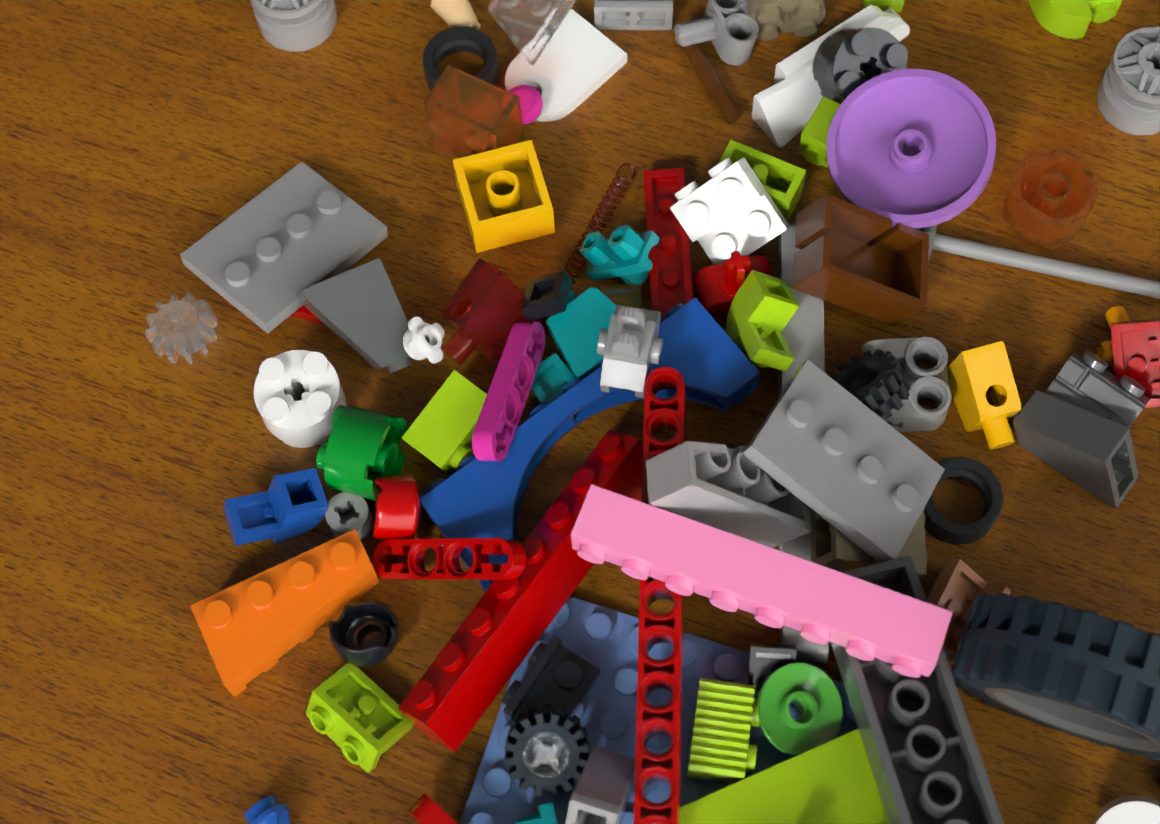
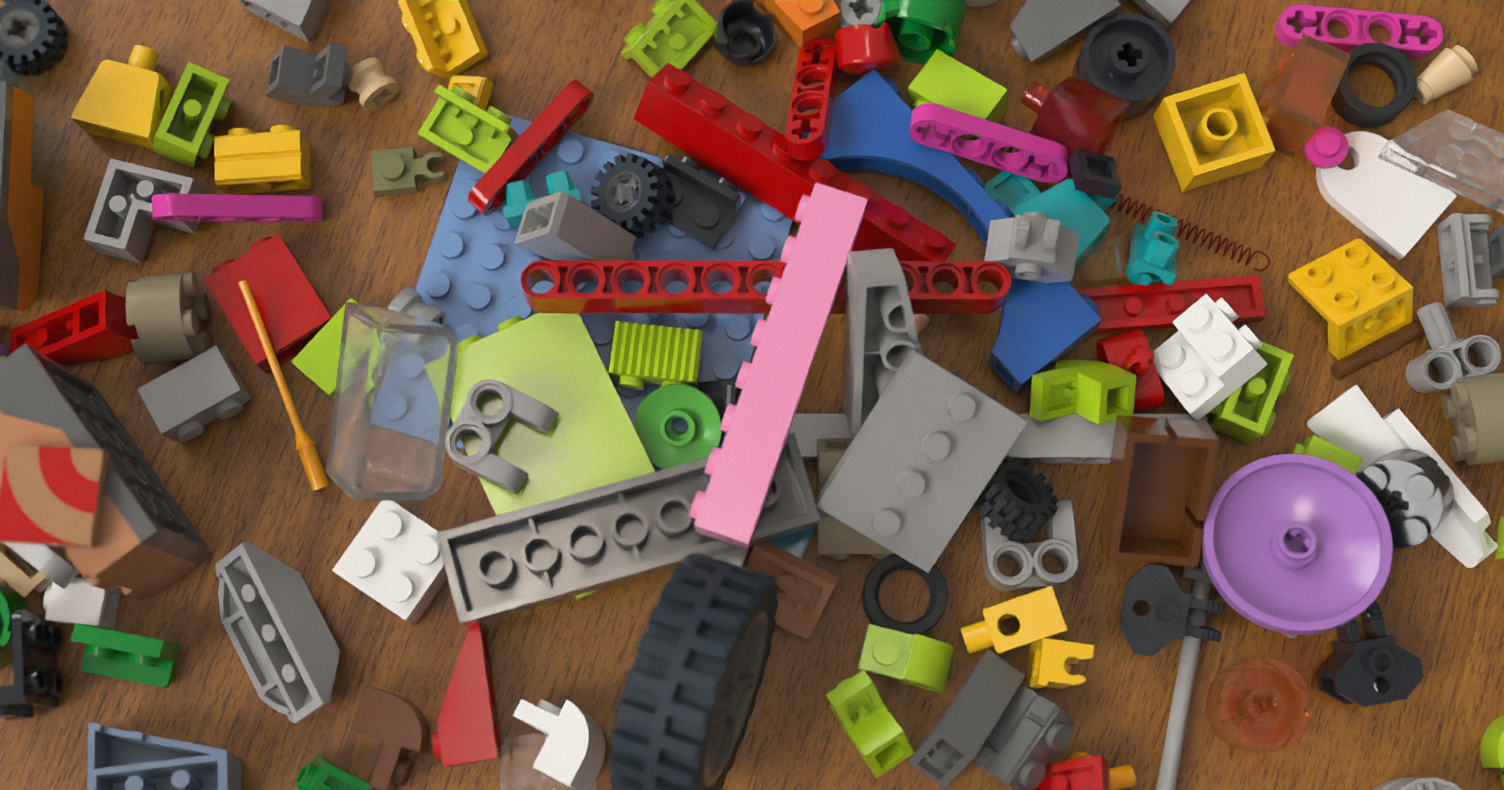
camera: 85 degrees right, 10 degrees up
(401, 73) = (1358, 26): none -> dark pink beam
(423, 340) = (1038, 49): white plate -> none
(427, 265) = (1129, 60): none -> black wheel
(661, 96) = (1355, 295): none -> yellow bracket
(968, 272) = (1166, 611): none -> black hinge
(1014, 116) = (1369, 666): none -> black hinge
(1026, 496) = (906, 657): none -> lime brick
(1030, 362) = (1050, 663): none -> yellow hinge
(1089, 535) = (869, 723): none -> lime brick

